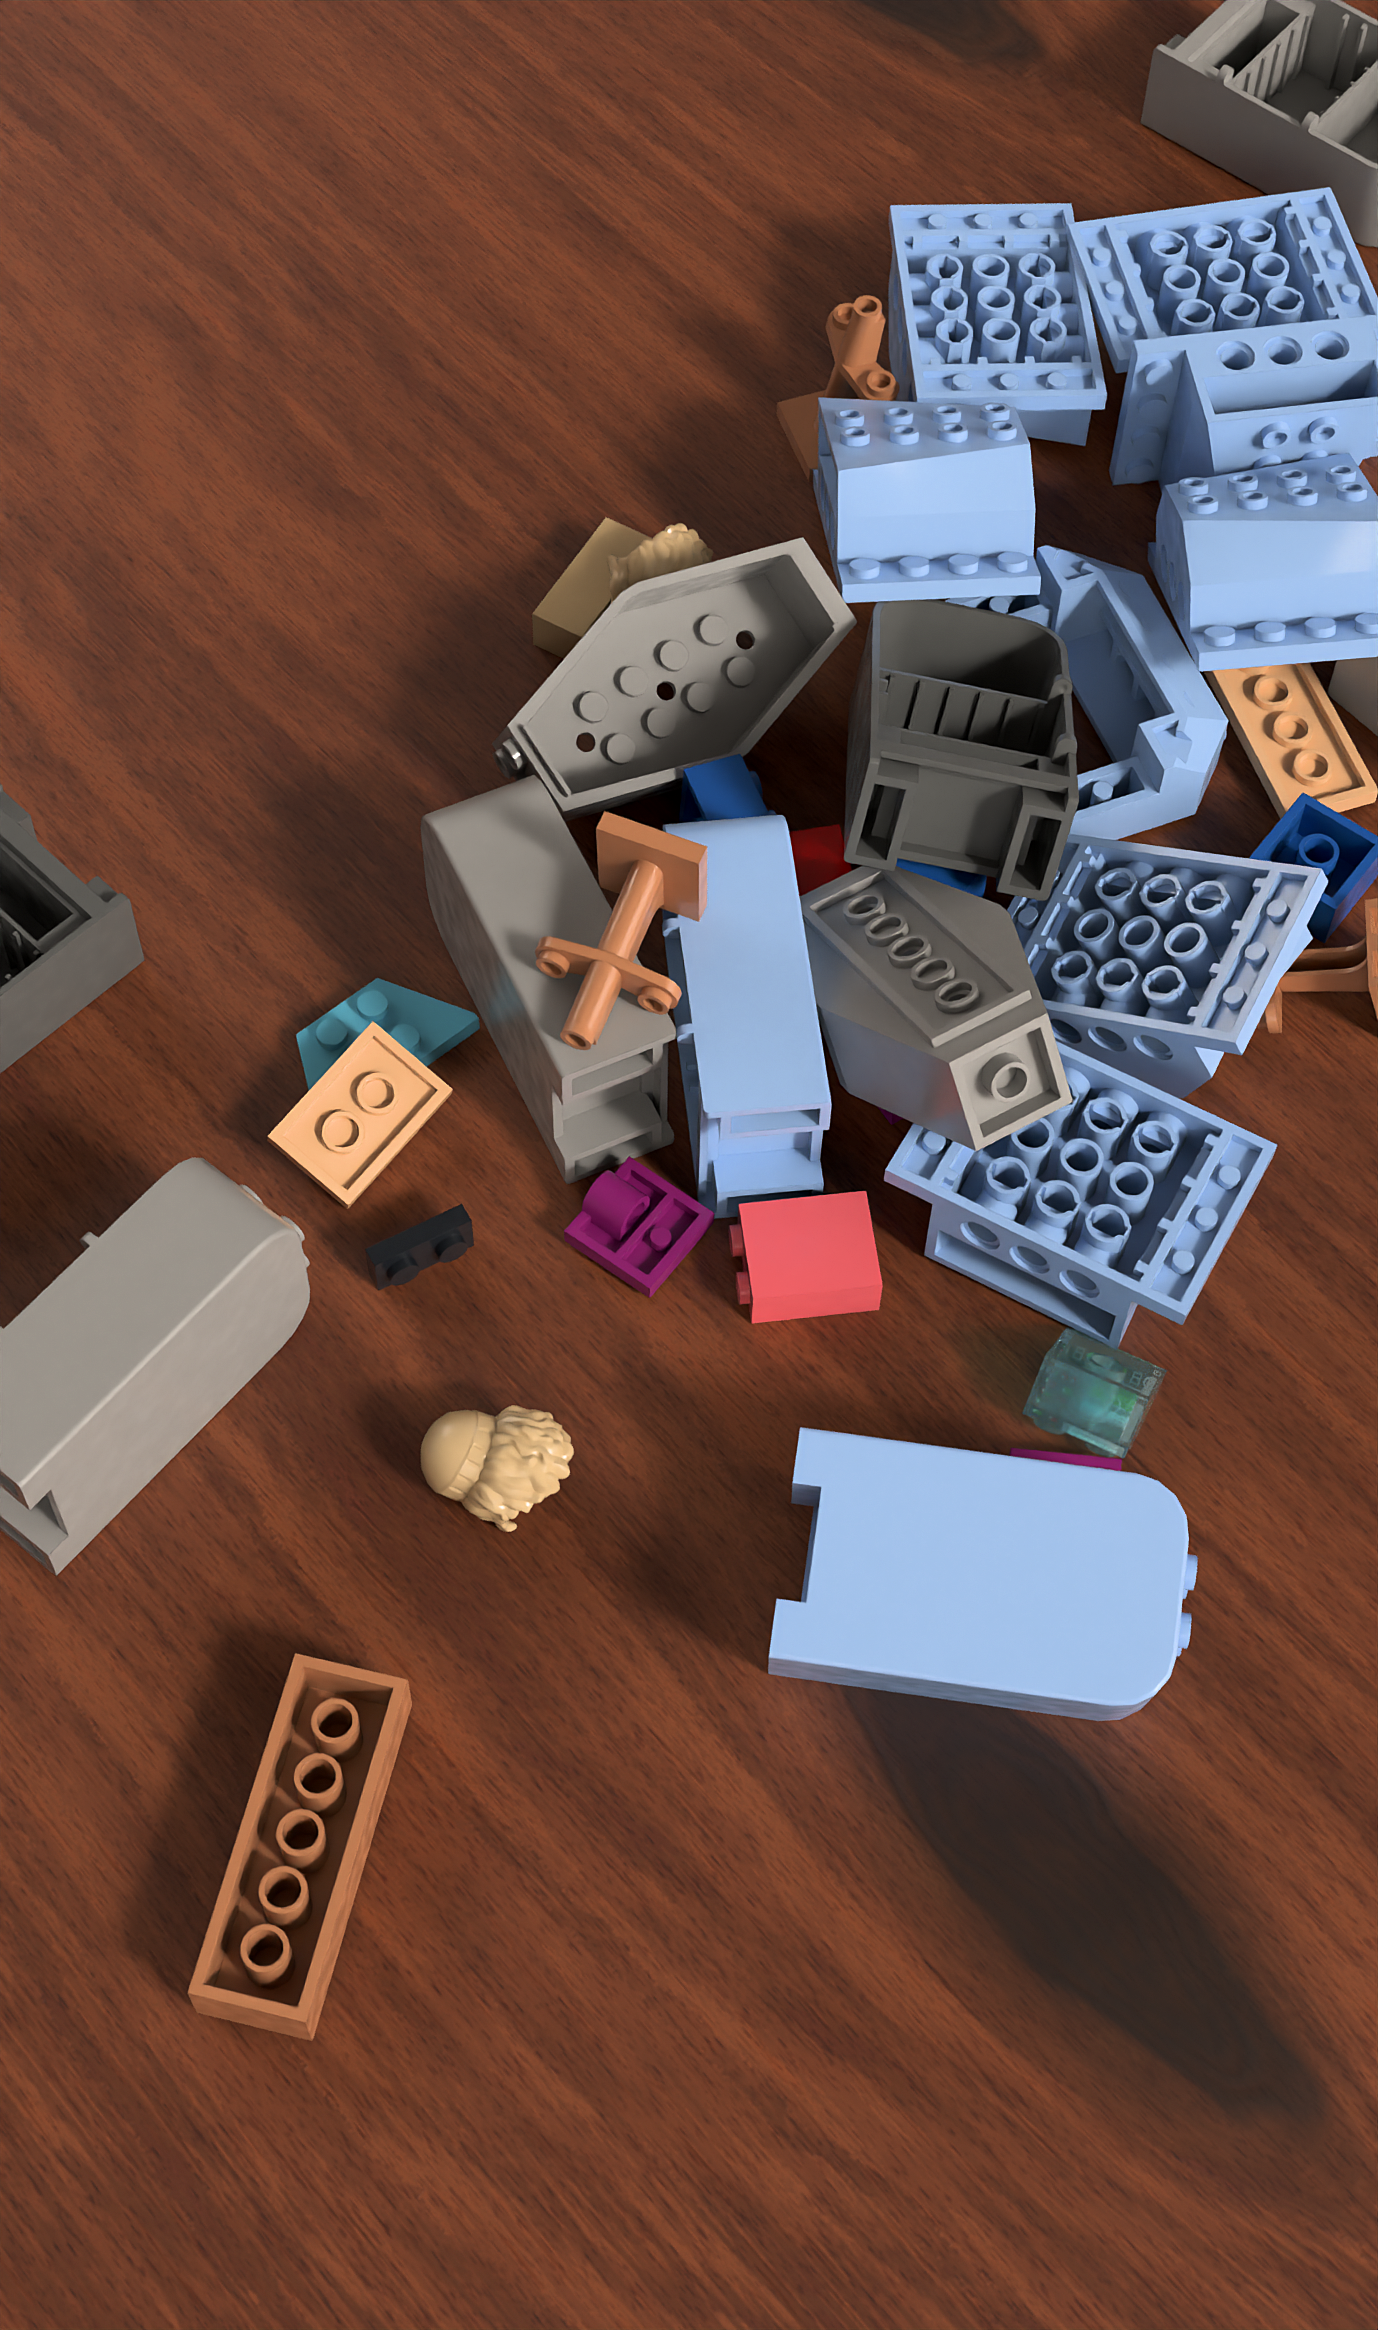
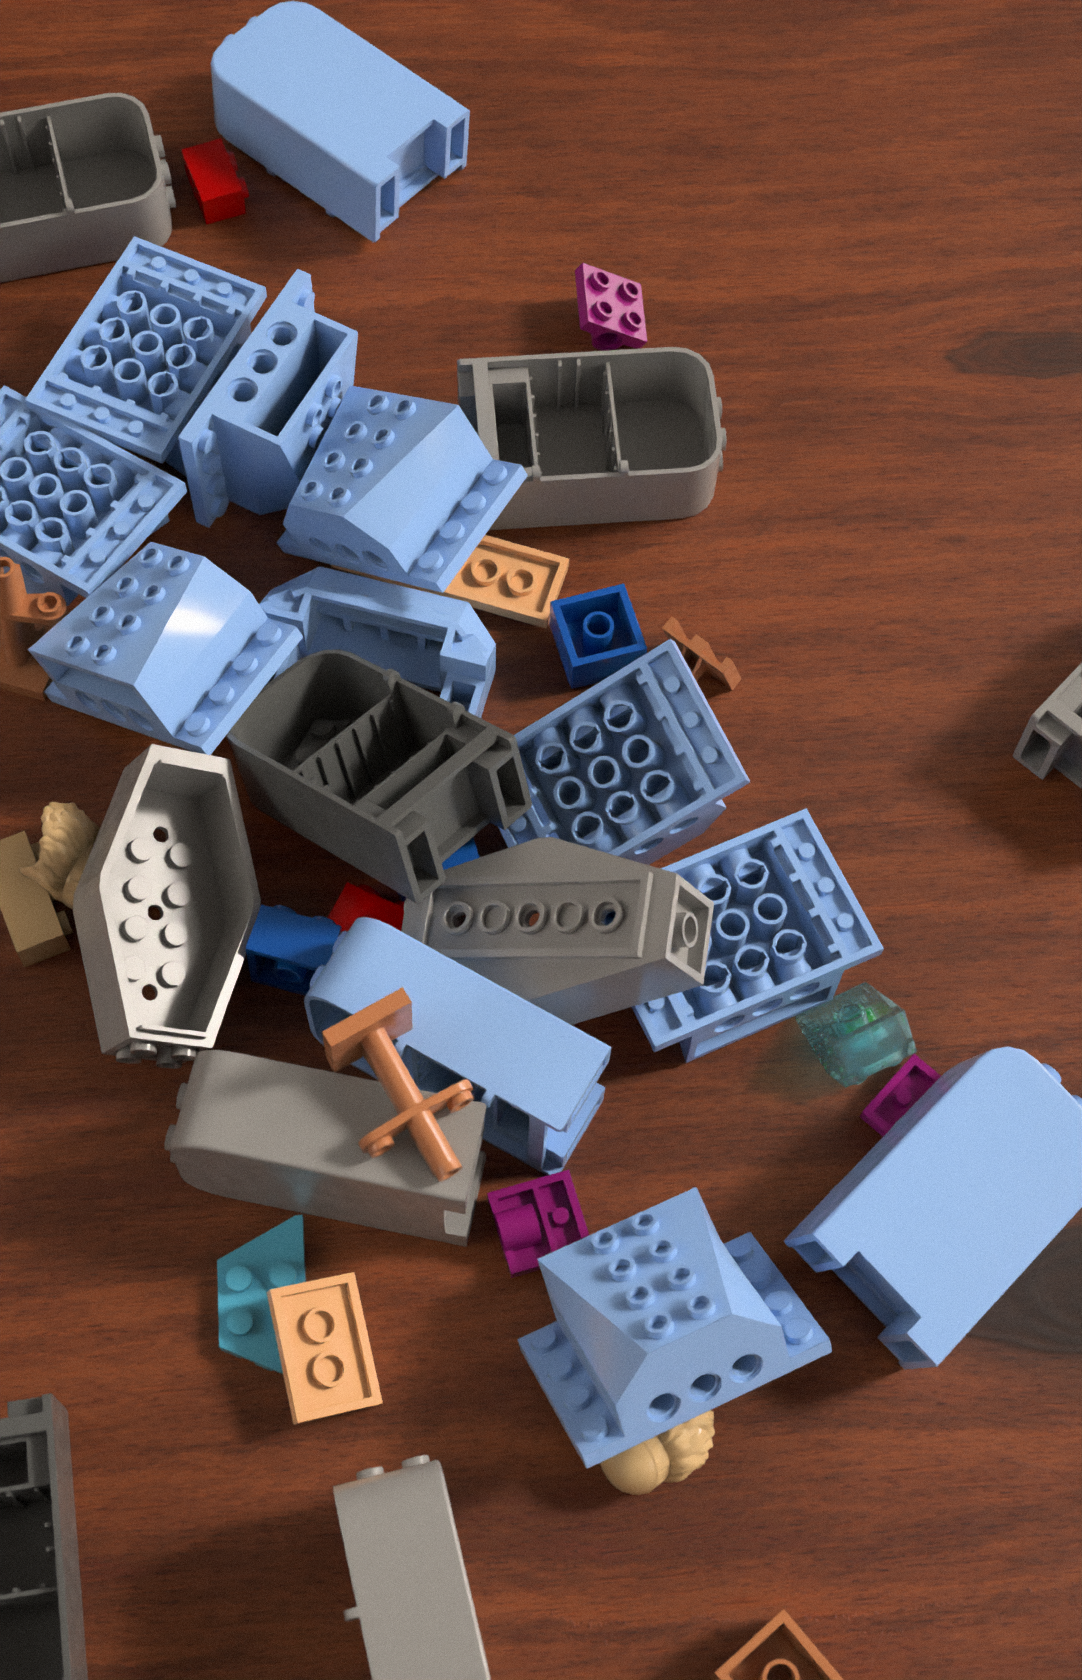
camera: 55 degrees left, 5 degrees up
(419, 1247) = (451, 1396): black plate -> none
(617, 1378) = (662, 1326): none -> light blue wedge
(806, 1257) = (640, 1135): coral brick -> none

